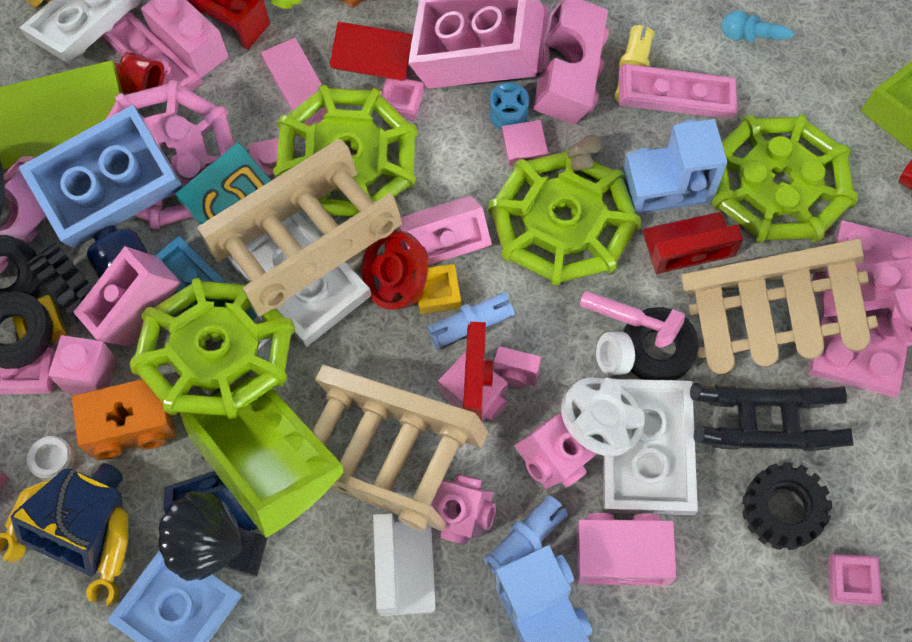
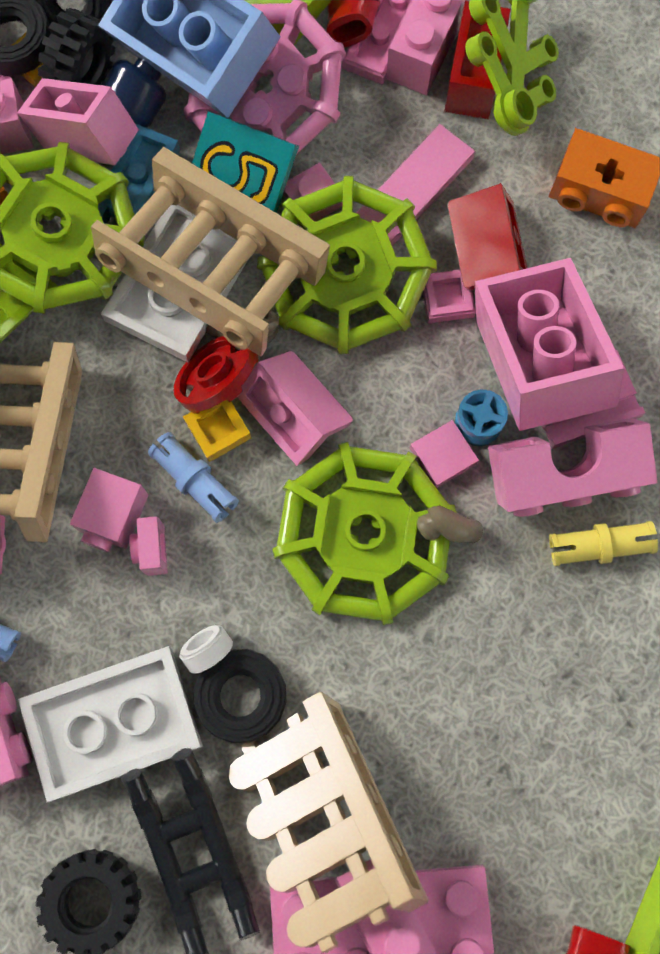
camera: 65 degrees right, 10 degrees up
(477, 368) = (101, 503): red plate -> none
(554, 454) = (61, 623): bright pink brick -> none
(603, 413) = (108, 659): white wheel -> none
(667, 330) = (253, 655): bright pink piece -> none
(677, 91) = (583, 608): bright pink tile -> none
(681, 173) = (460, 639): light blue brick -> none
(691, 242) = (389, 689): red panel -> none
(804, 171) = (532, 803): lime plate -> none

